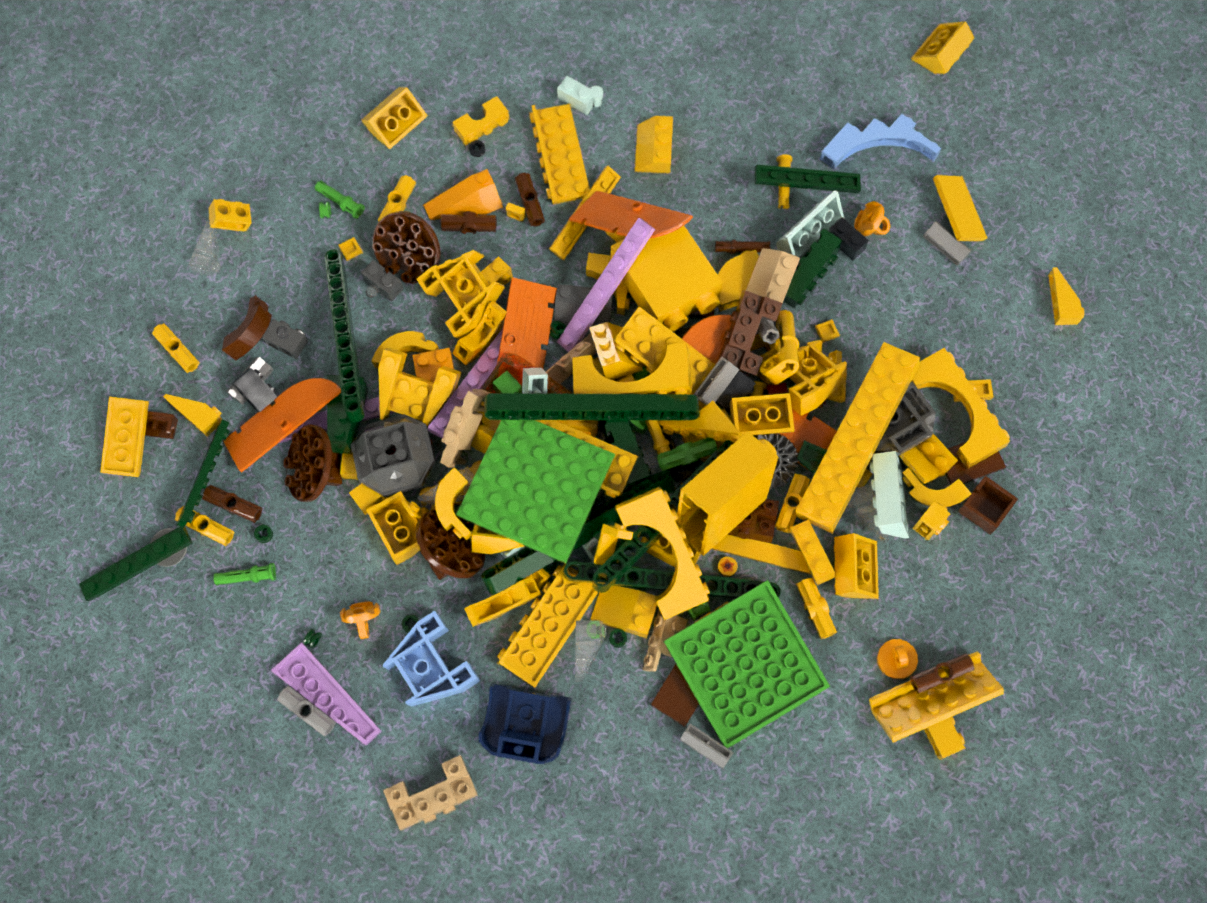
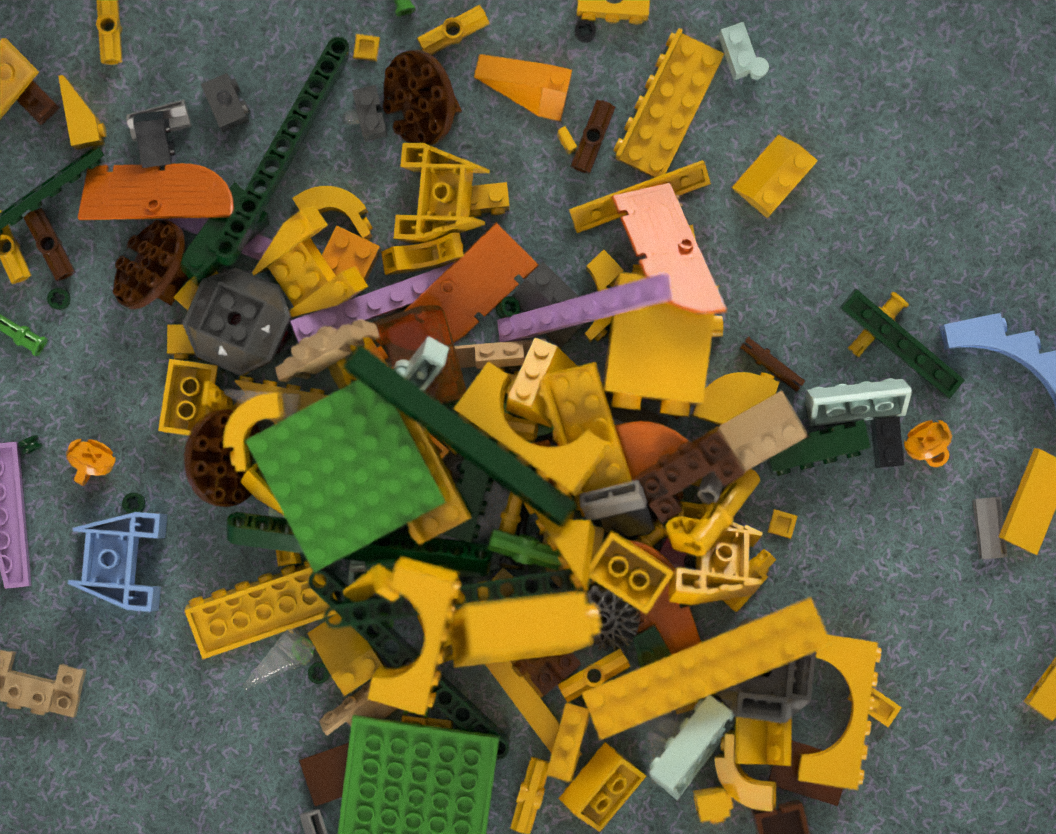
camera: 35 degrees right, 15 degrees up
(250, 331) = (196, 69): reddish brown arch -> none
(469, 223) = (509, 114): reddish brown piece -> none
(502, 602) = (222, 552): yellow arch -> none
(506, 384) = (402, 340): bright green brick -> none
(524, 724) = (163, 689): dark blue piece -> none
(727, 566) = (479, 686): yellow tile -> none

